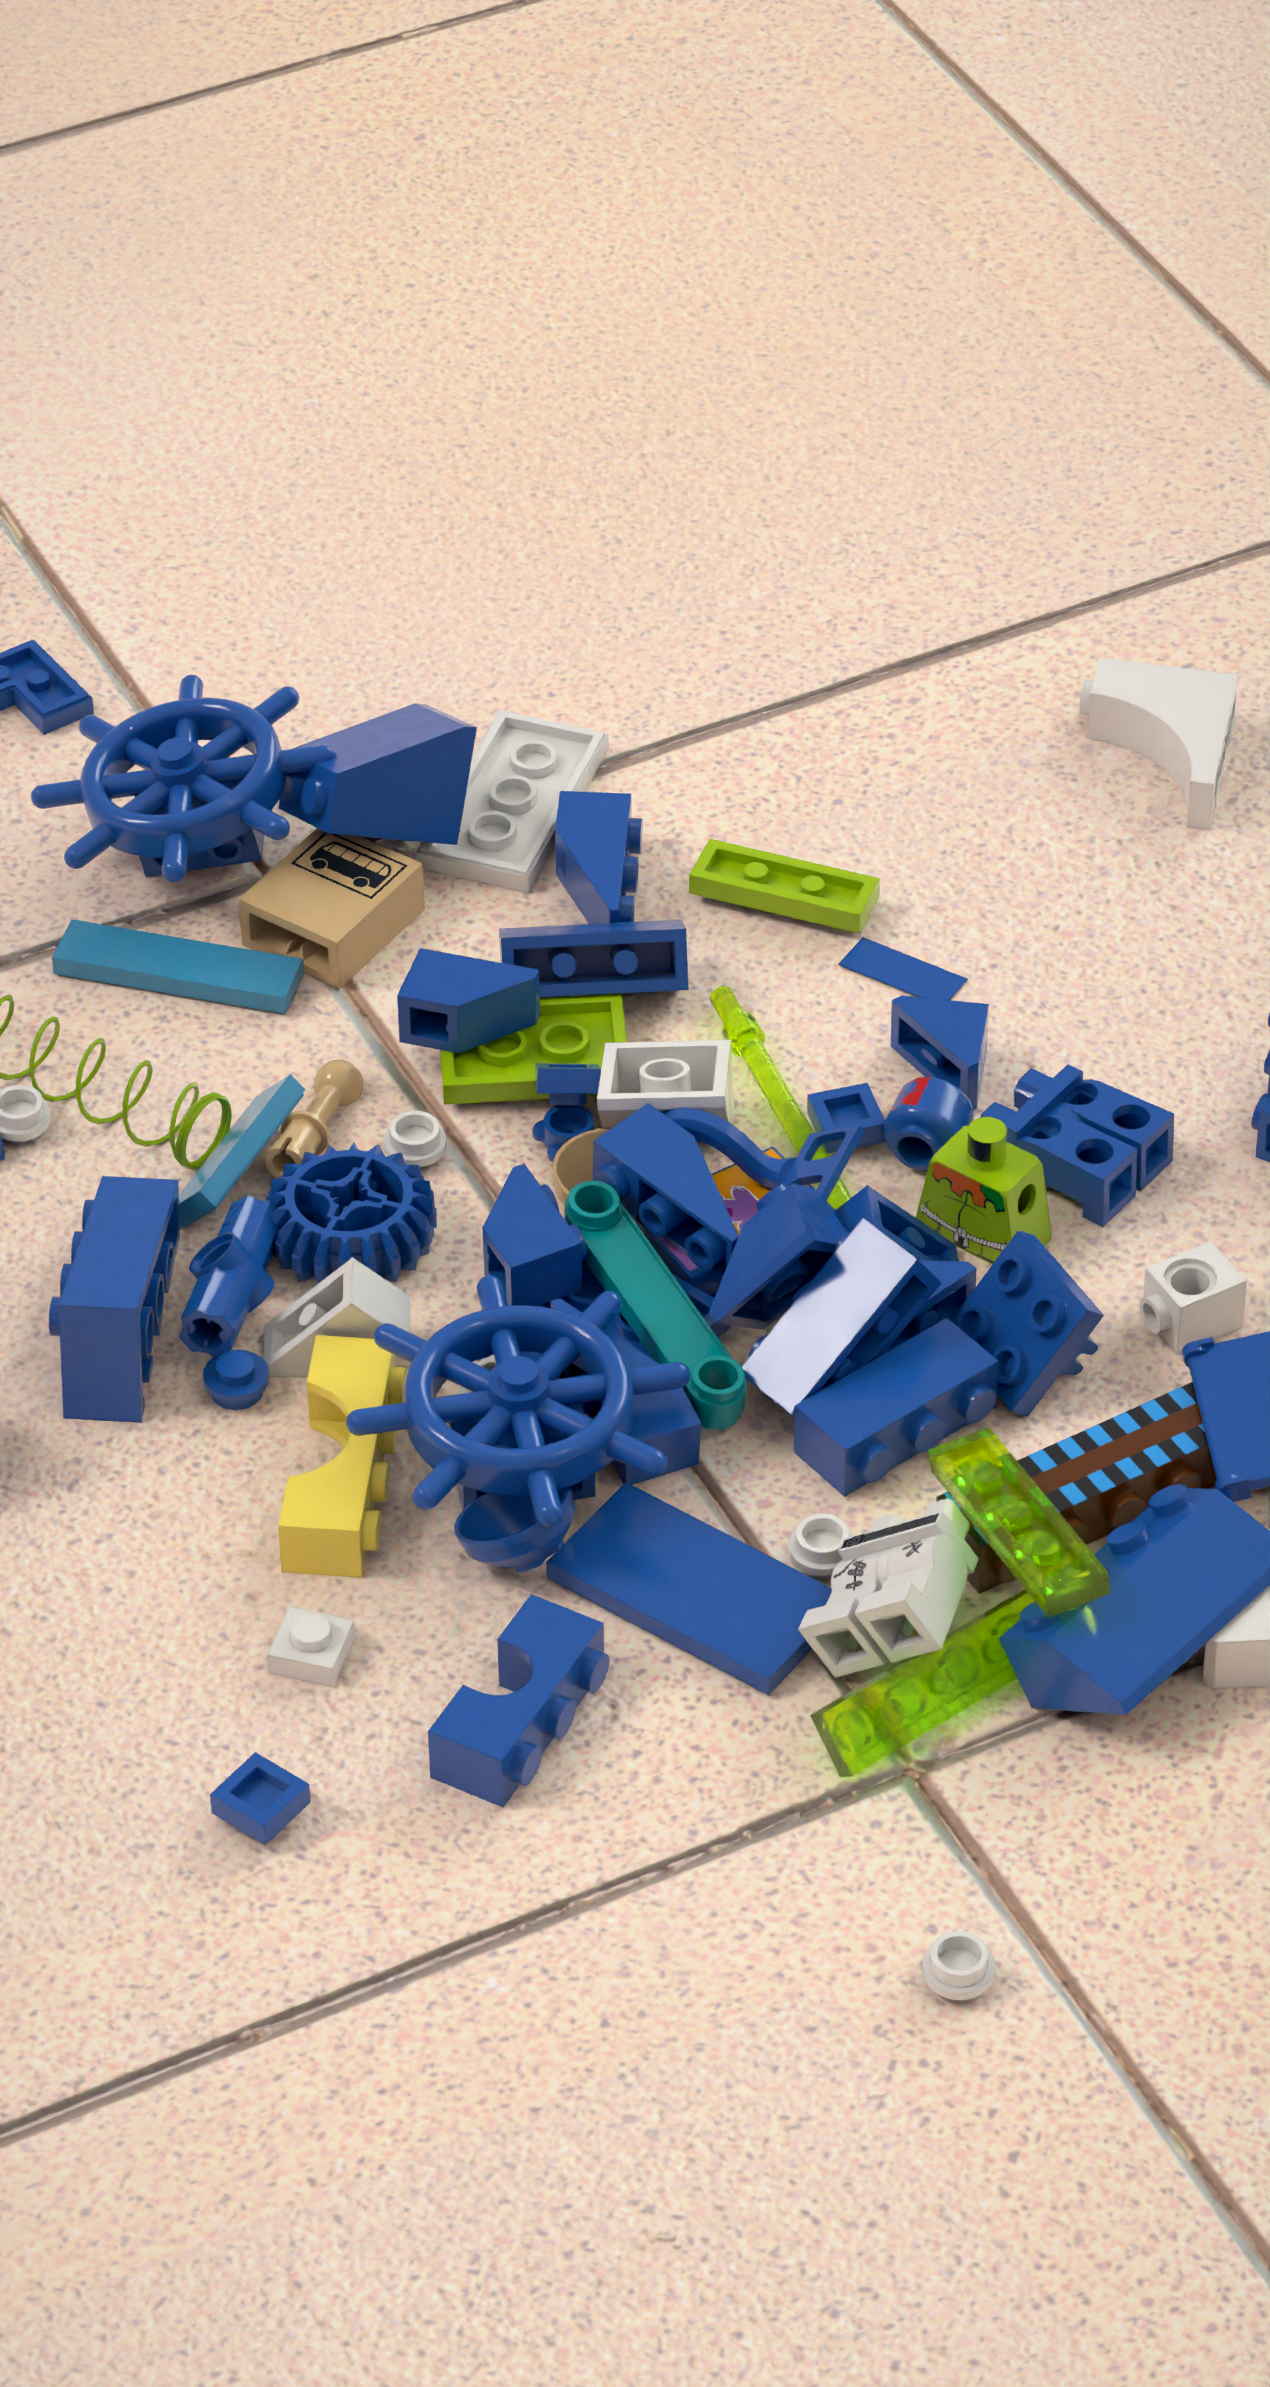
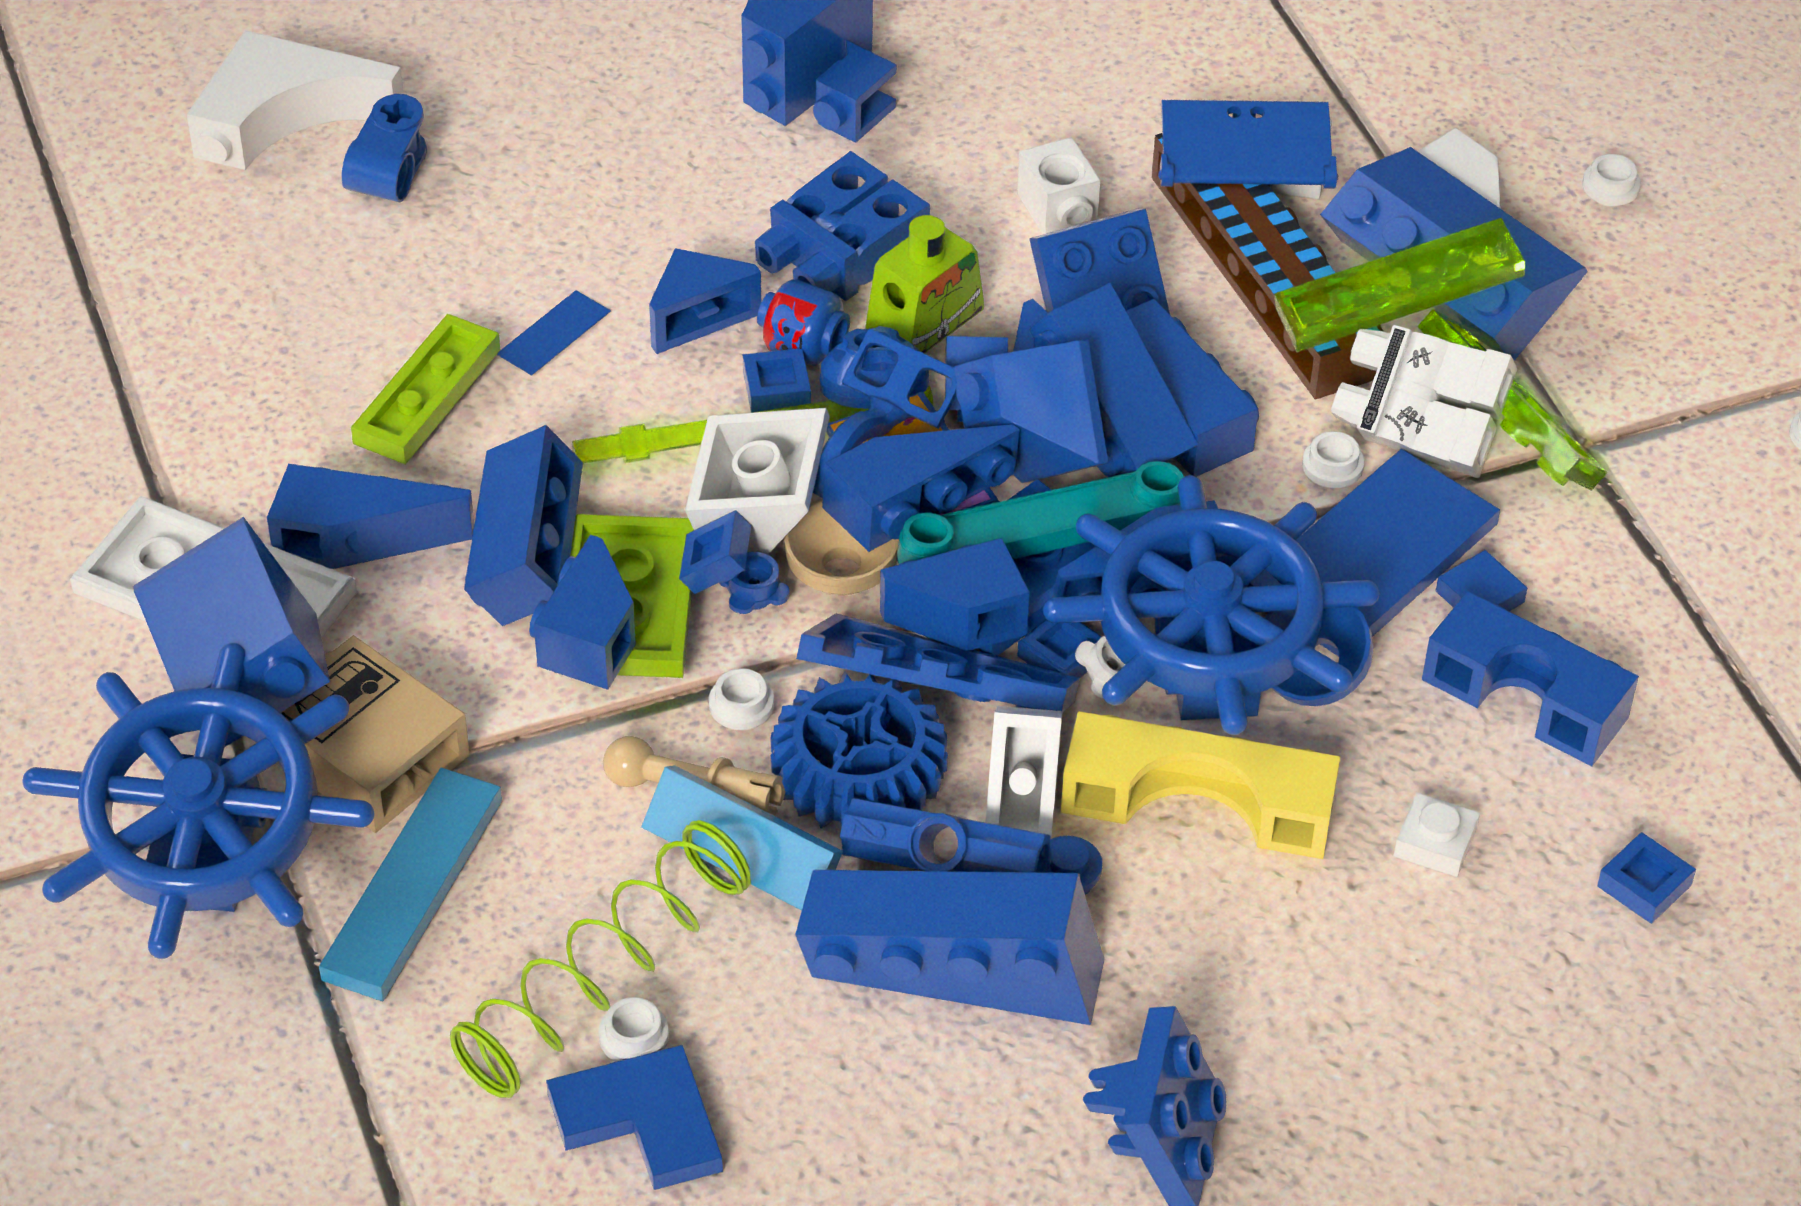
camera: 85 degrees left, 5 degrees up
(453, 1202) = (928, 662): none -> blue wing
(656, 1674) = (1484, 578): none -> blue tile
(882, 1166) = (874, 368): none -> blue piece
(1107, 811) = (386, 150): none -> blue piece

